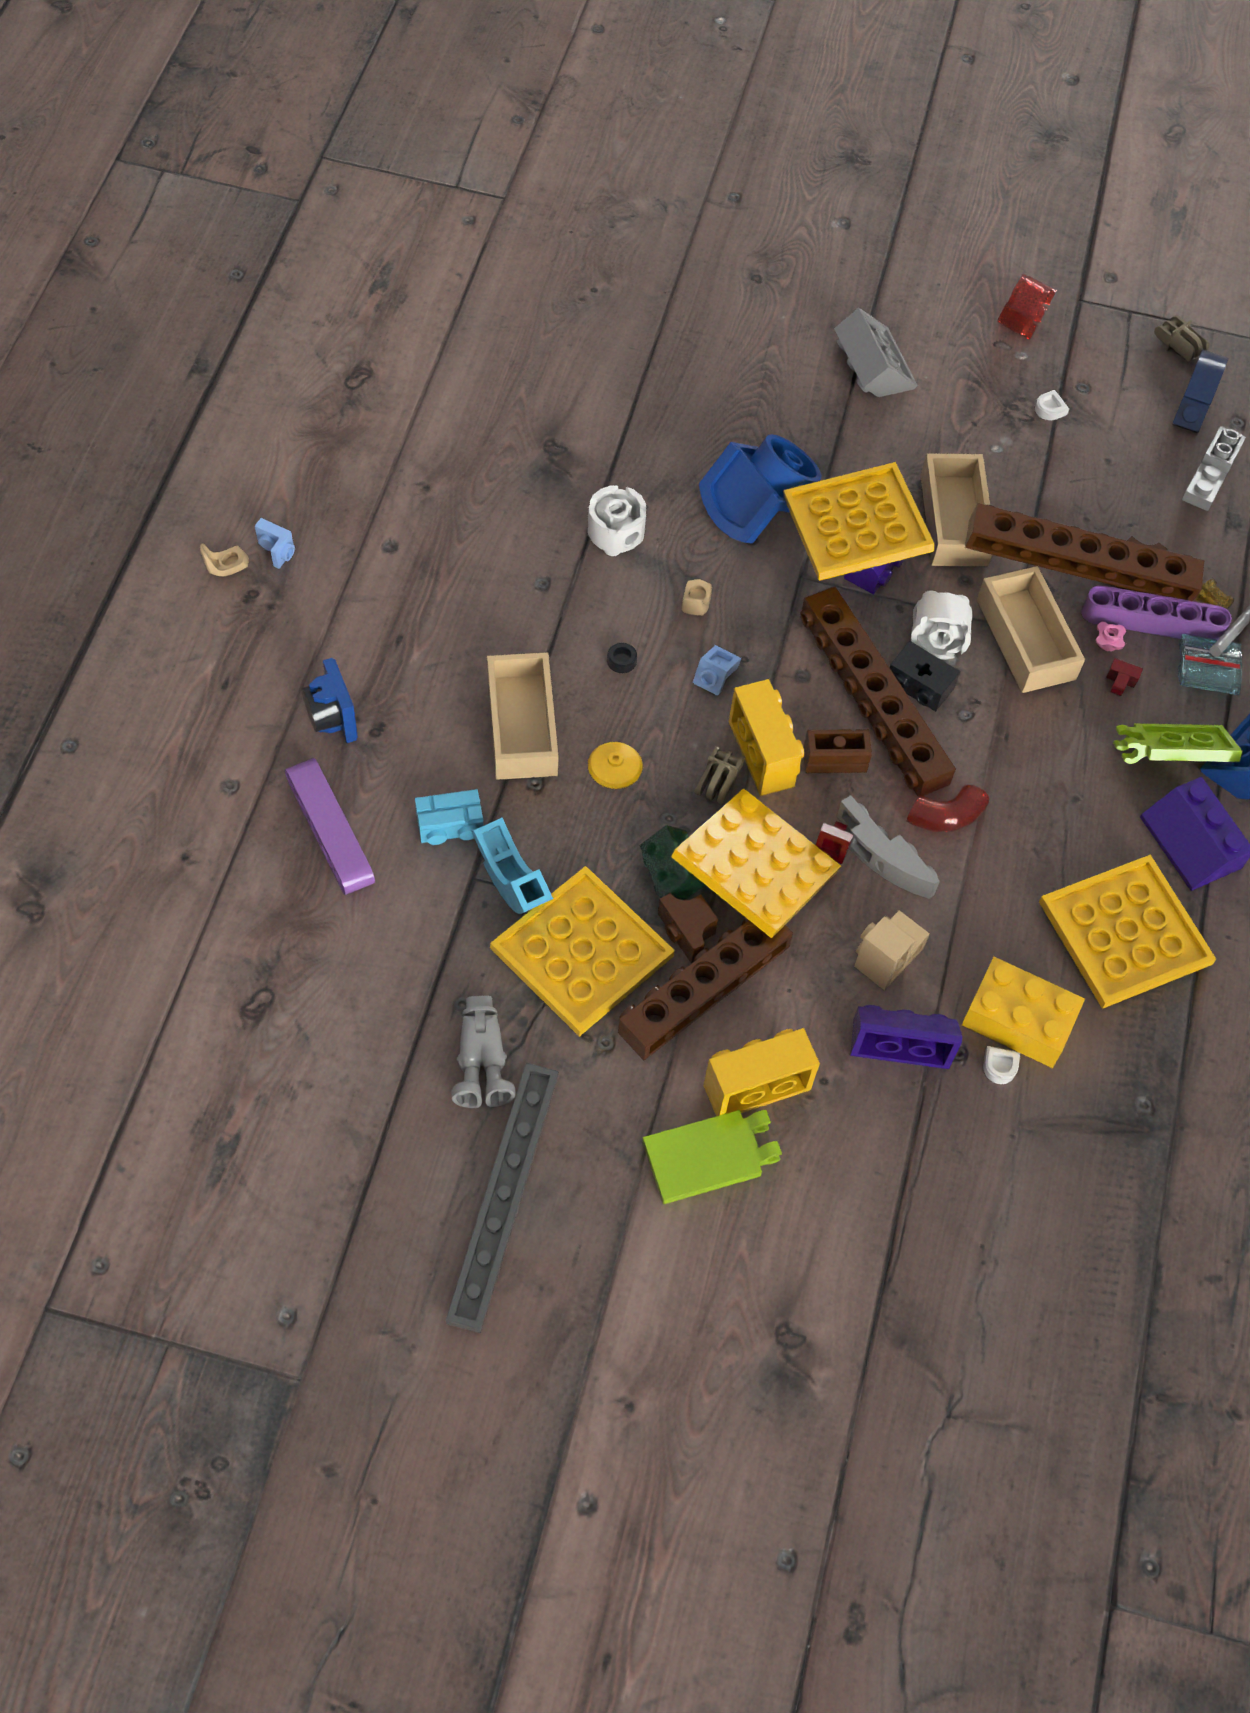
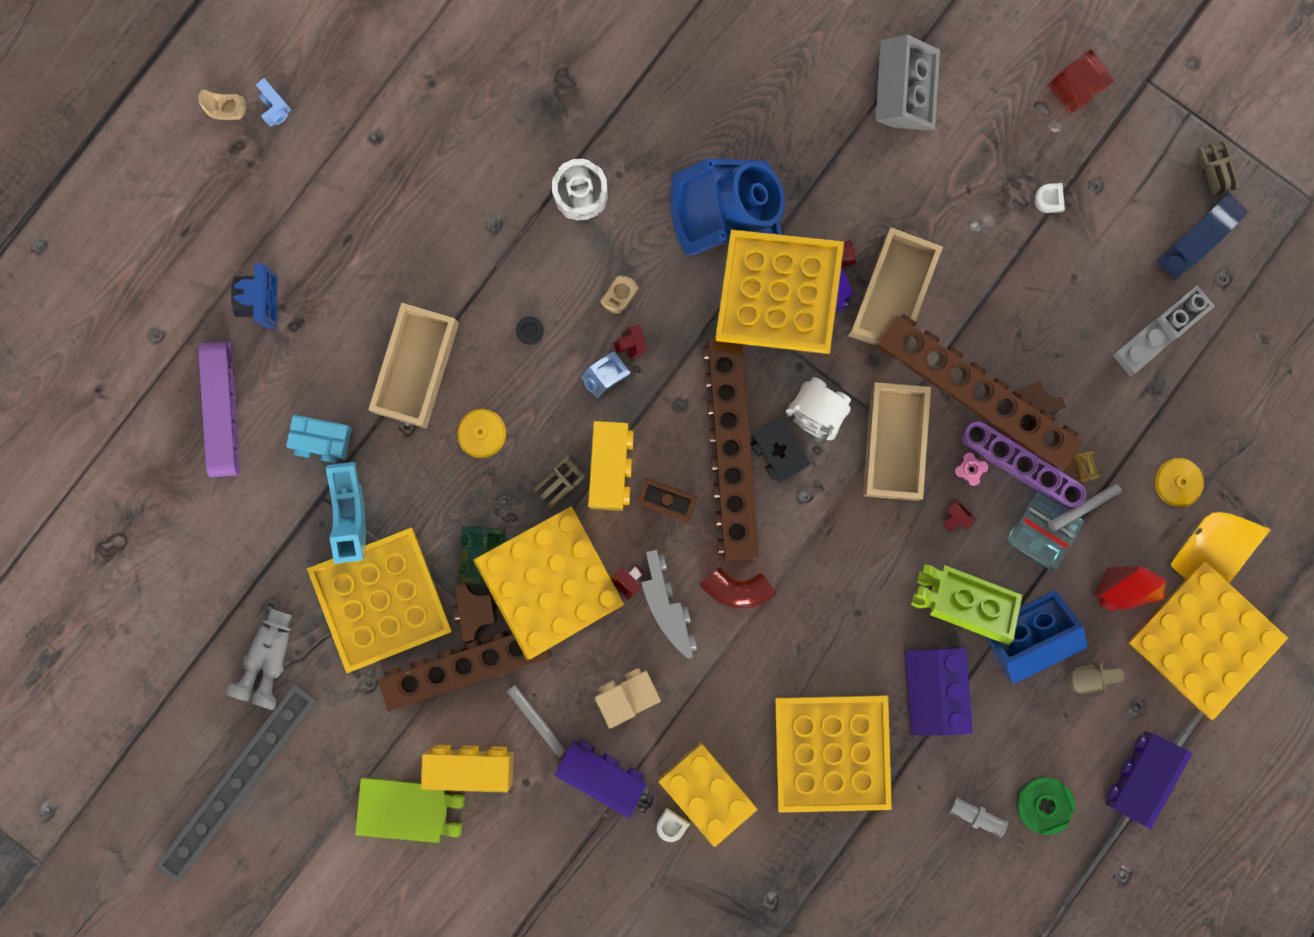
camera: 25 degrees right, 25 degrees up
(731, 630) = (631, 342): none -> dark red tile
(806, 1012) = (536, 721): none -> light grey bar

